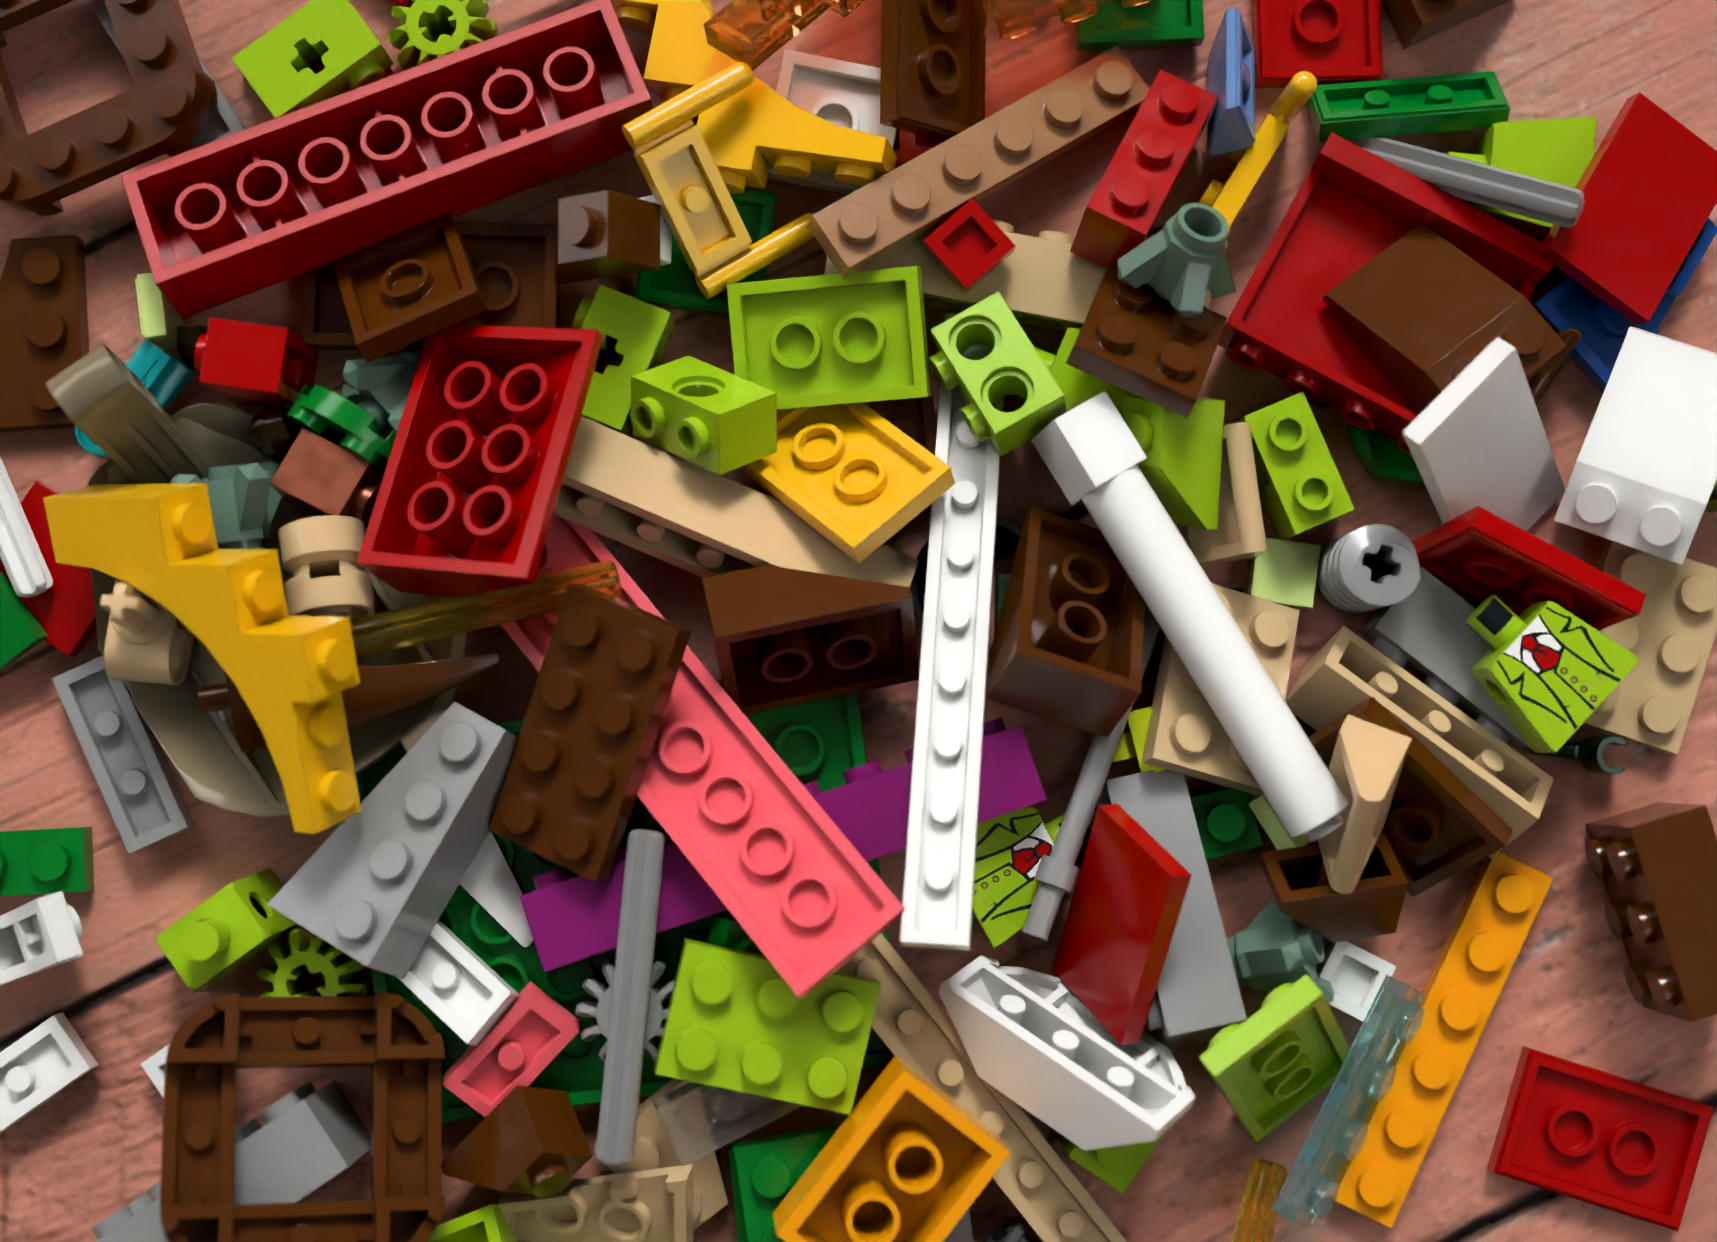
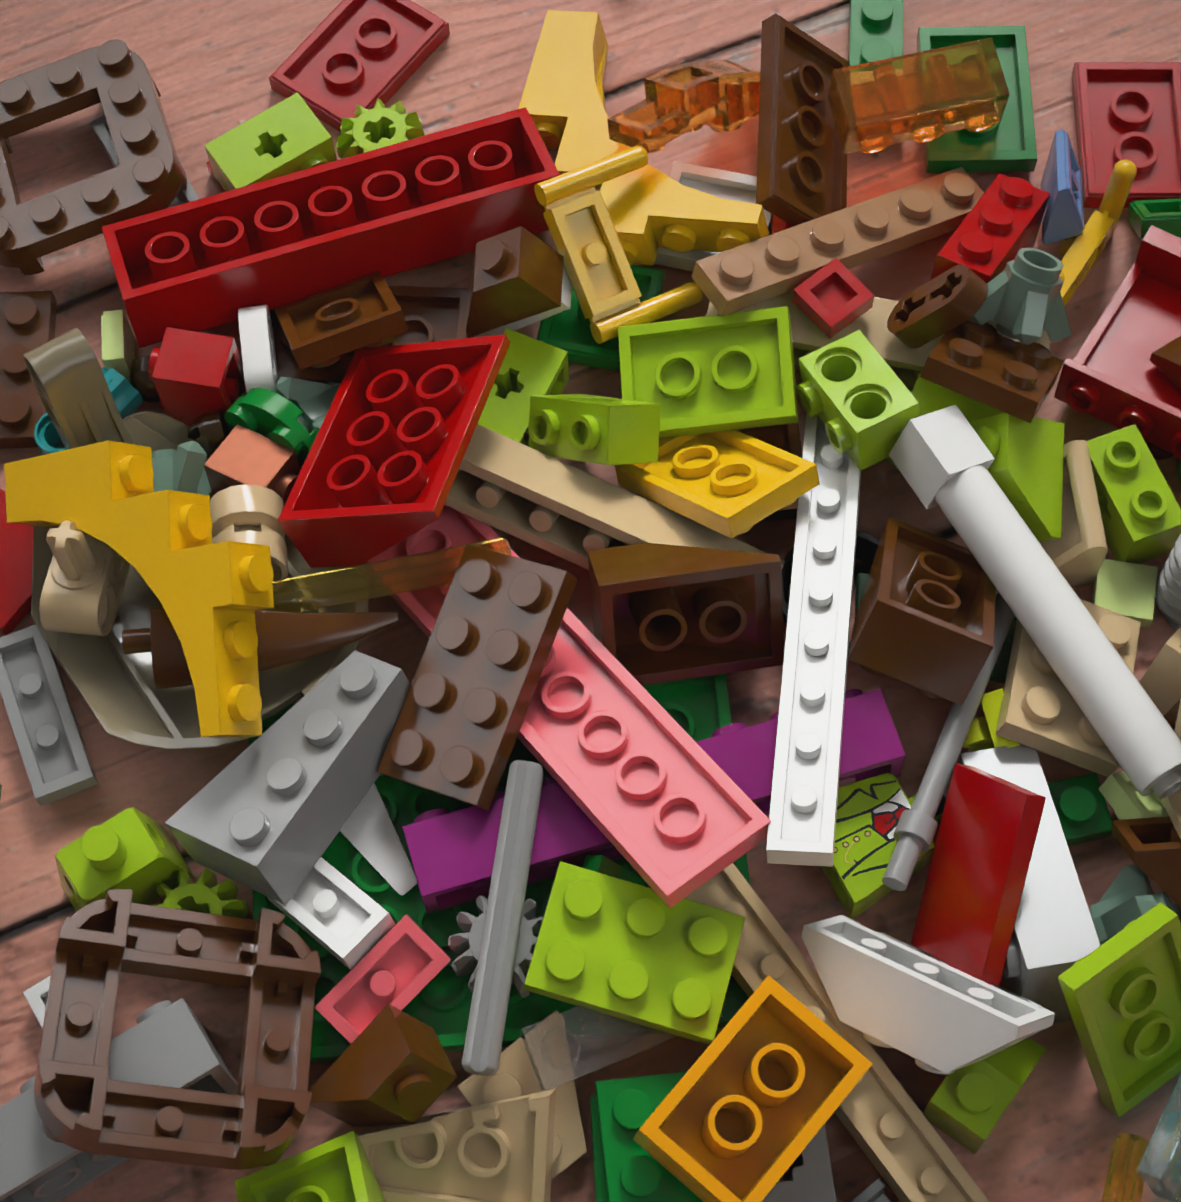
camera: 10 degrees right, 20 degrees down
(319, 325) = (257, 348): none -> white beam
(1101, 262) = (937, 306): none -> reddish brown beam

